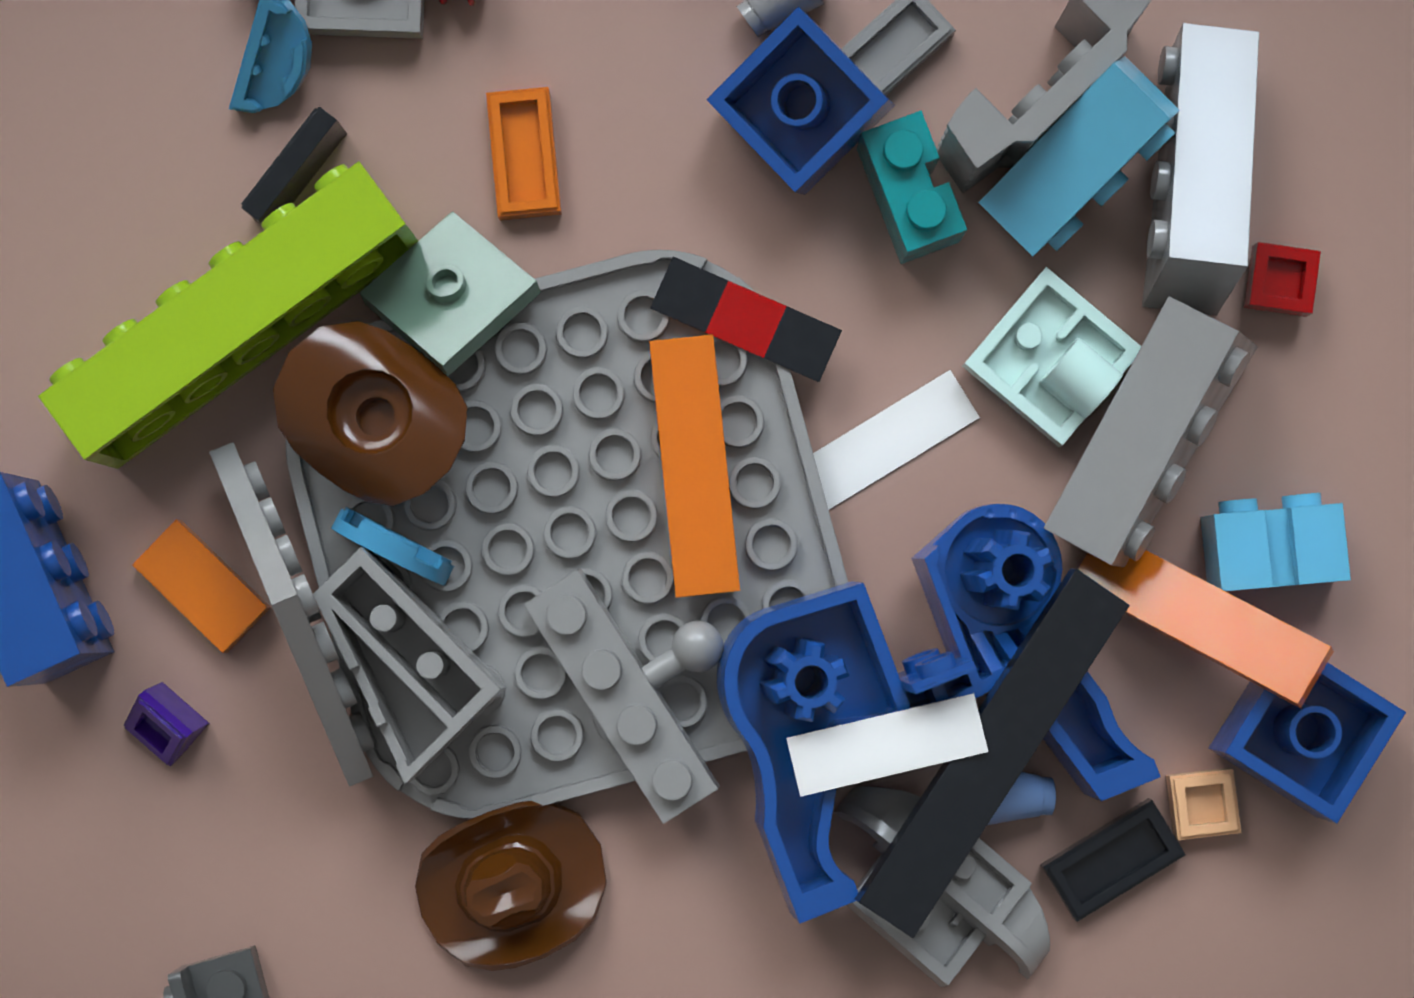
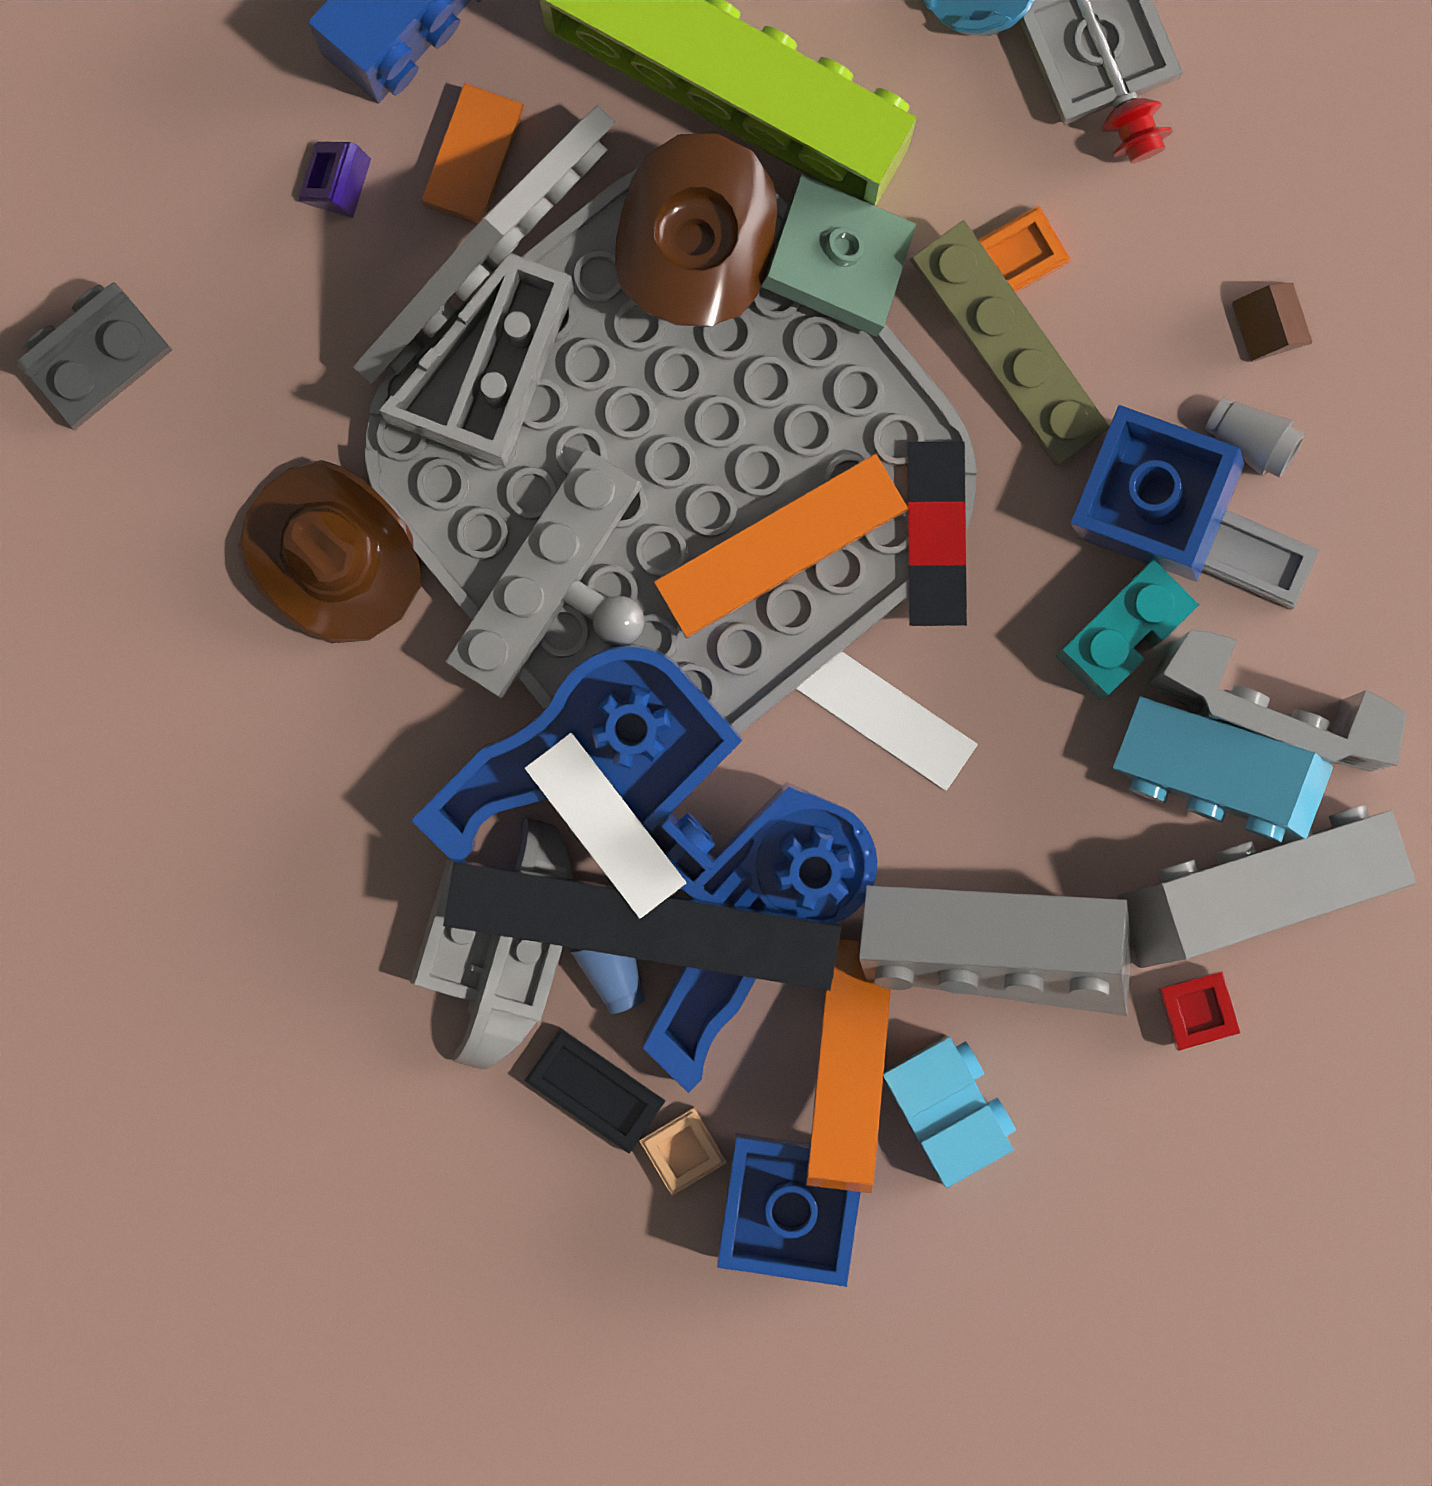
camera: 65 degrees right, 0 degrees up
(295, 165) = (891, 62): black tile -> none
(392, 546) = (585, 308): dark azure tile -> none
(600, 175) = (1009, 343): none -> olive plate
(1053, 357) = (1030, 828): light aqua plate -> none

